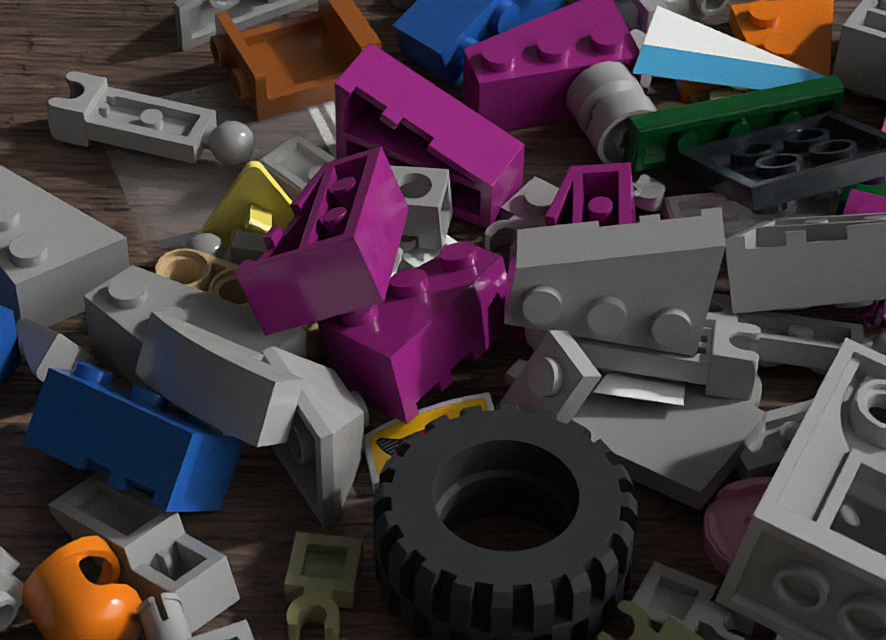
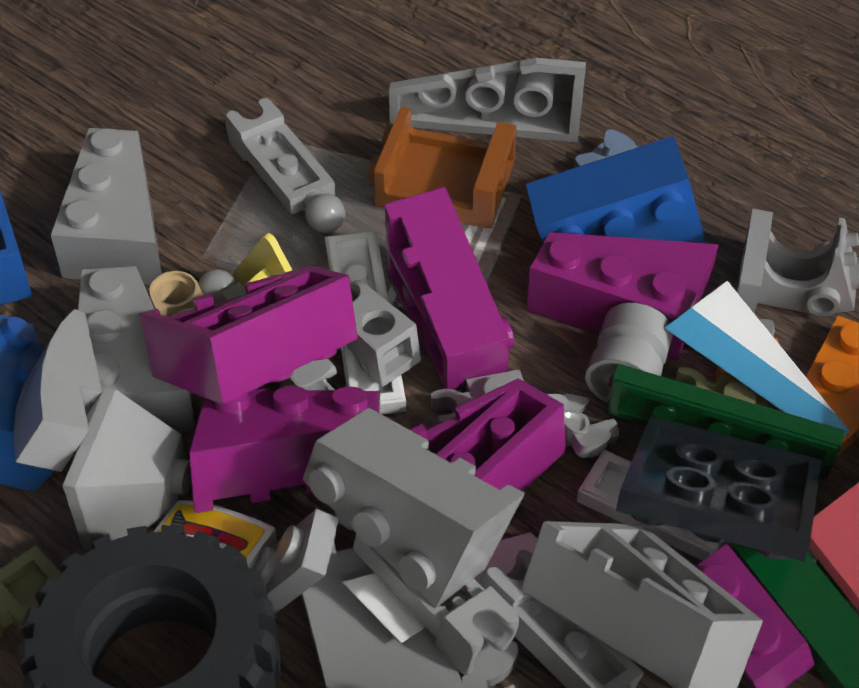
camera: 40 degrees right, 5 degrees up
(48, 349) = (41, 302): light grey slope -> none

